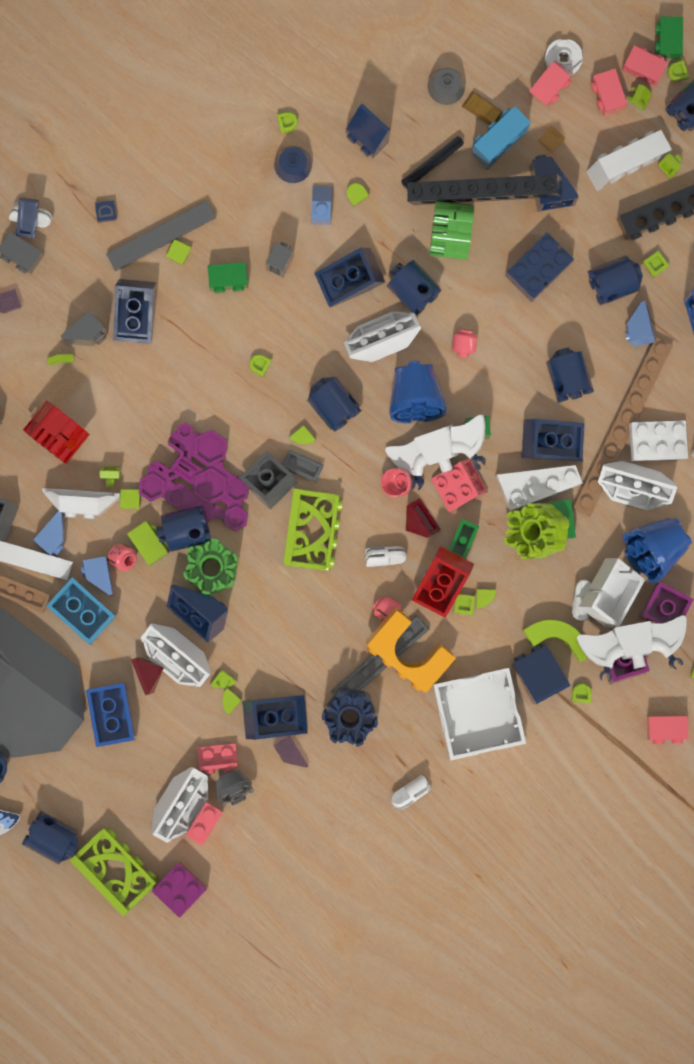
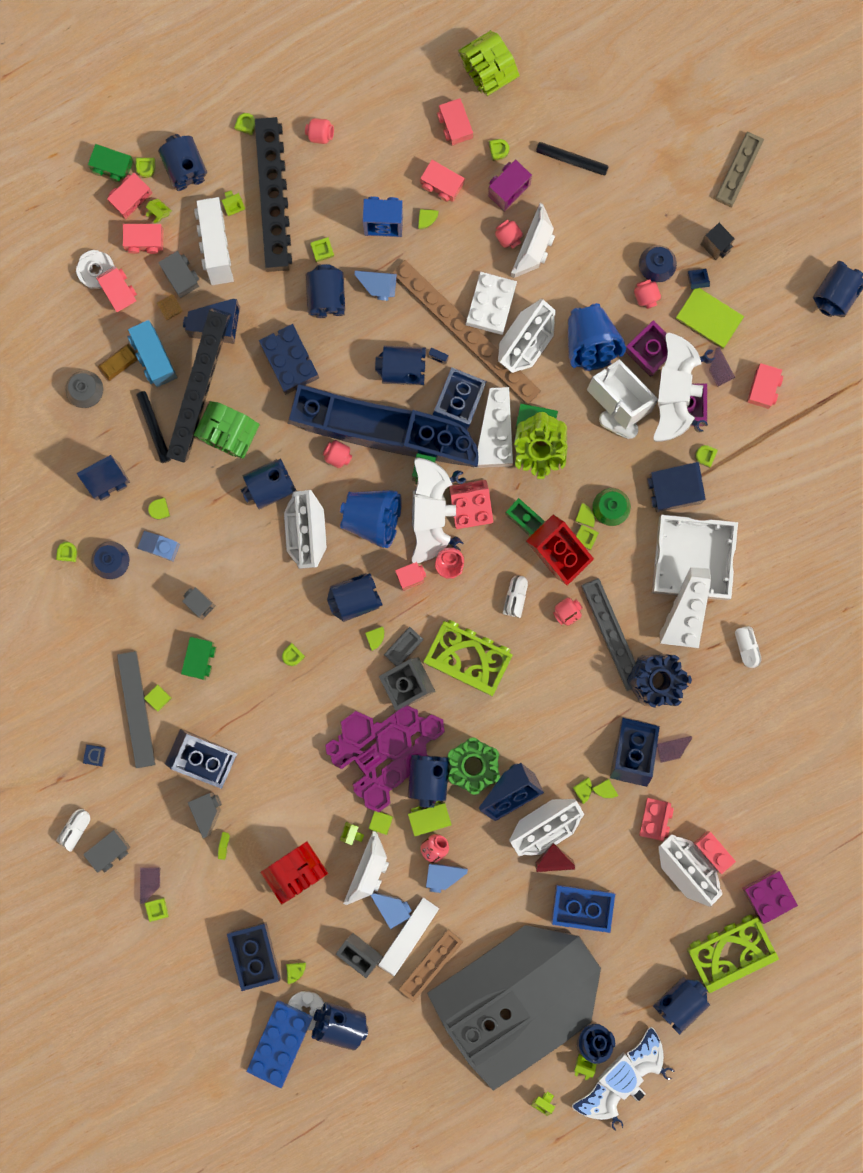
camera: 65 degrees left, 0 degrees up
(27, 217) = (75, 833): dark blue tile -> none
(81, 611) = (474, 904): dark azure brick -> none
(233, 787) = (689, 814): dark grey cone -> none
(349, 276) = (237, 542): dark blue slope -> none
(371, 449) = (410, 576): none -> coral brick
(419, 723) = (687, 615): none -> white wedge
(420, 520) = (492, 552): dark red slope -> none
(421, 674) = (639, 599): light orange arch -> none
(501, 619) = (611, 507): none -> green cone
(504, 376) = (382, 427): none -> dark blue slope
(555, 629) = (635, 467): lime arch -> none
(585, 137) = (178, 273): none -> dark grey brick
(590, 407) = (438, 356): none -> dark blue tile
(669, 681) = (720, 369): none -> tile

